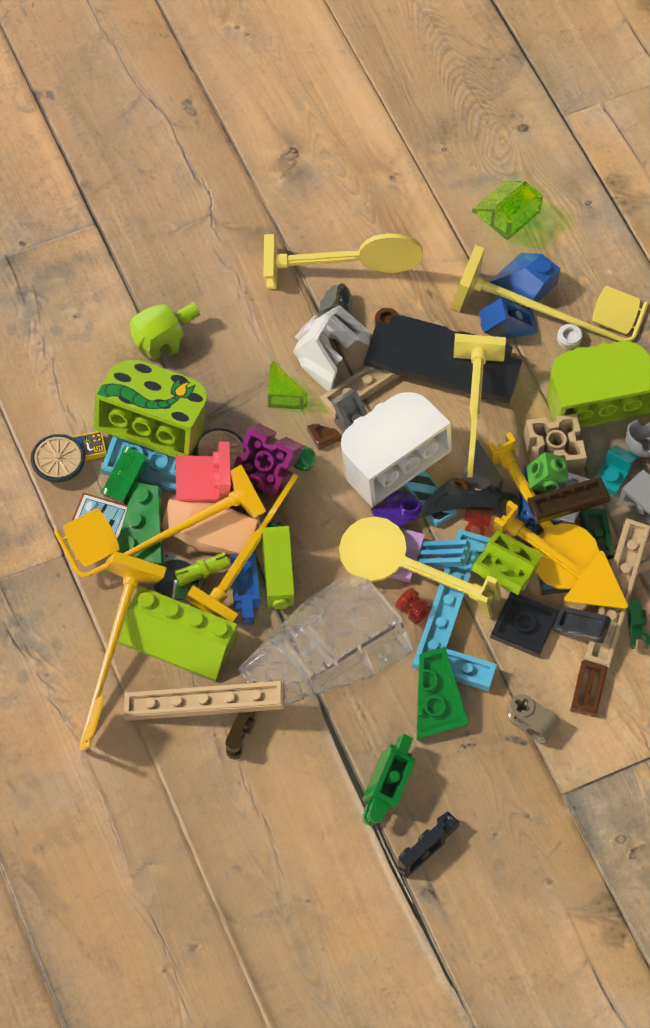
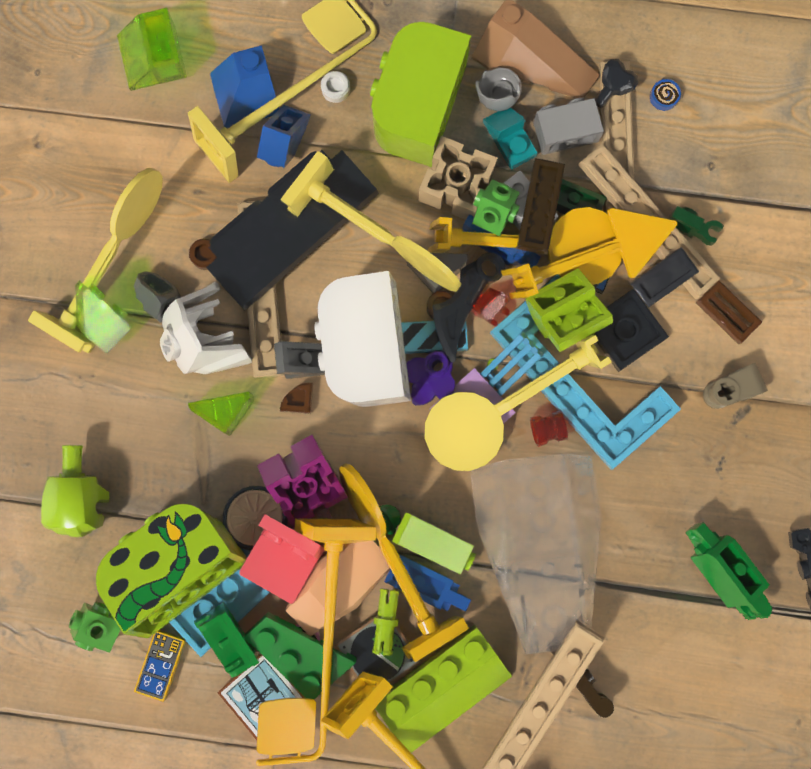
camera: 55 degrees left, 20 degrees up
(57, 458) = (160, 698): tan wheel -> none
(78, 399) = (94, 627): none -> bright green brick
(294, 276) = (97, 319): none -> clear neon green slope
(306, 459) = (321, 434): green plate -> none
(438, 695) = (664, 466): green wing -> none

